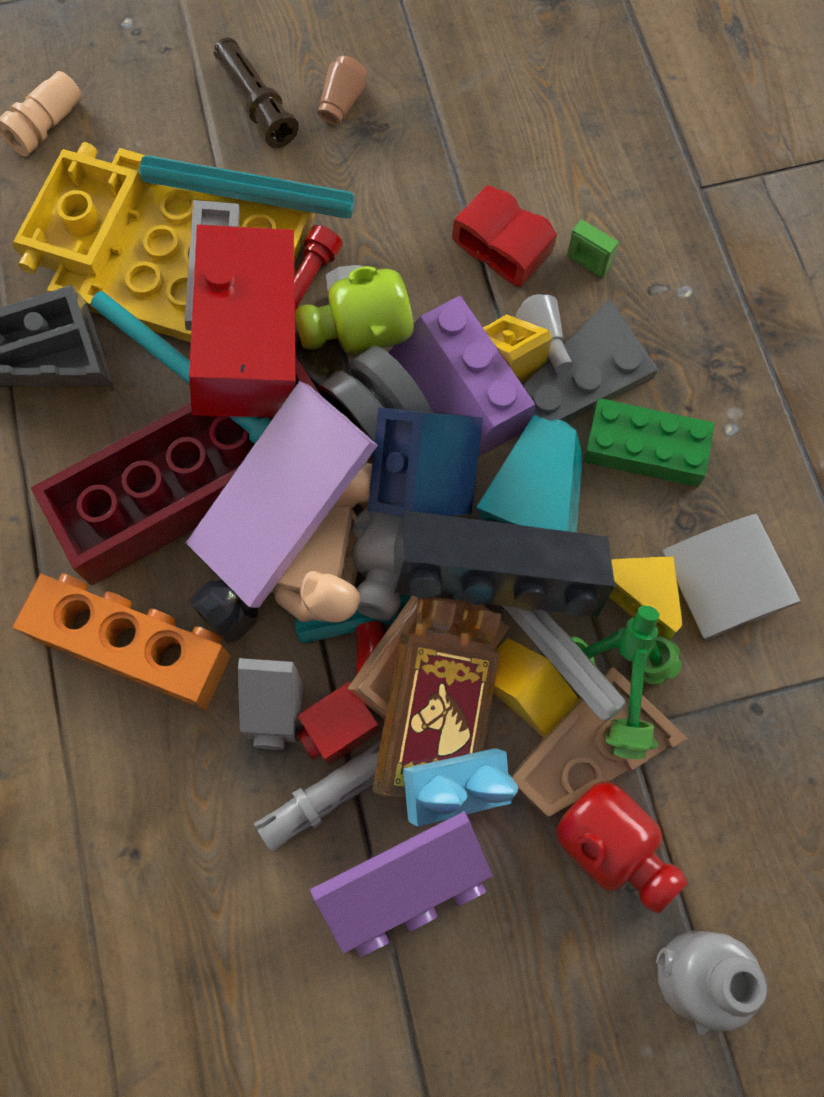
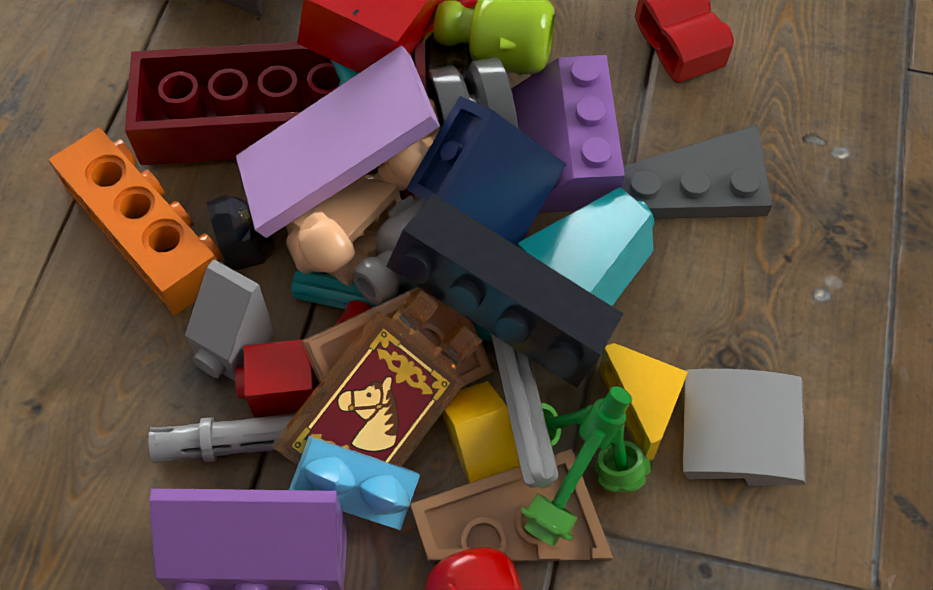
camera: 25 degrees right, 10 degrees down
(520, 344) = (642, 129): yellow slope -> none
(544, 312) = (677, 114): light grey cone -> none
(592, 248) = (763, 74): bright green tile -> none
(649, 442) = (727, 267): green piece -> none

